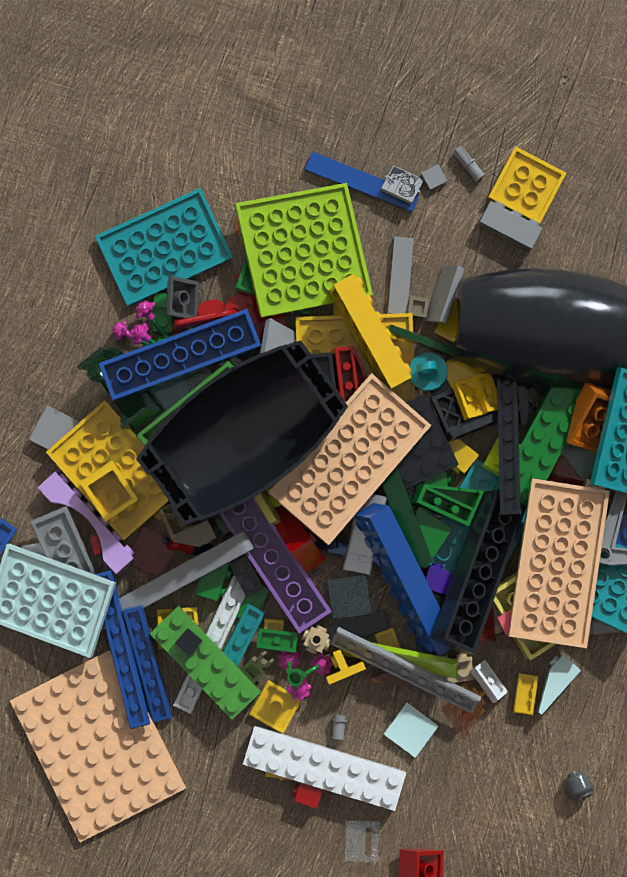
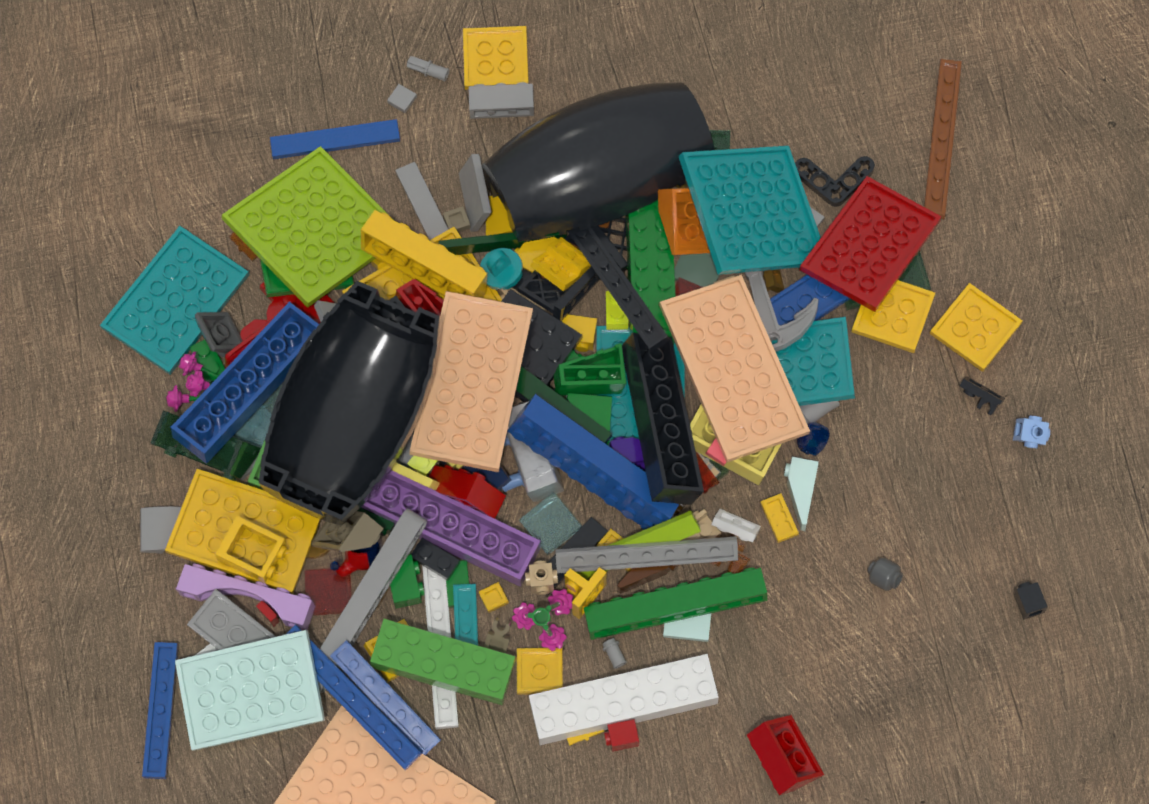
camera: 25 degrees left, 15 degrees down
(188, 641) = (414, 644): black tile -> none
(277, 640) = (503, 601): green plate -> none
(356, 841) = (698, 753): clear plate -> none
(402, 184) = (375, 119): piece -> none
(406, 717) = (675, 603): none -> green brick
(593, 648) = (815, 440): none -> clear blue hair

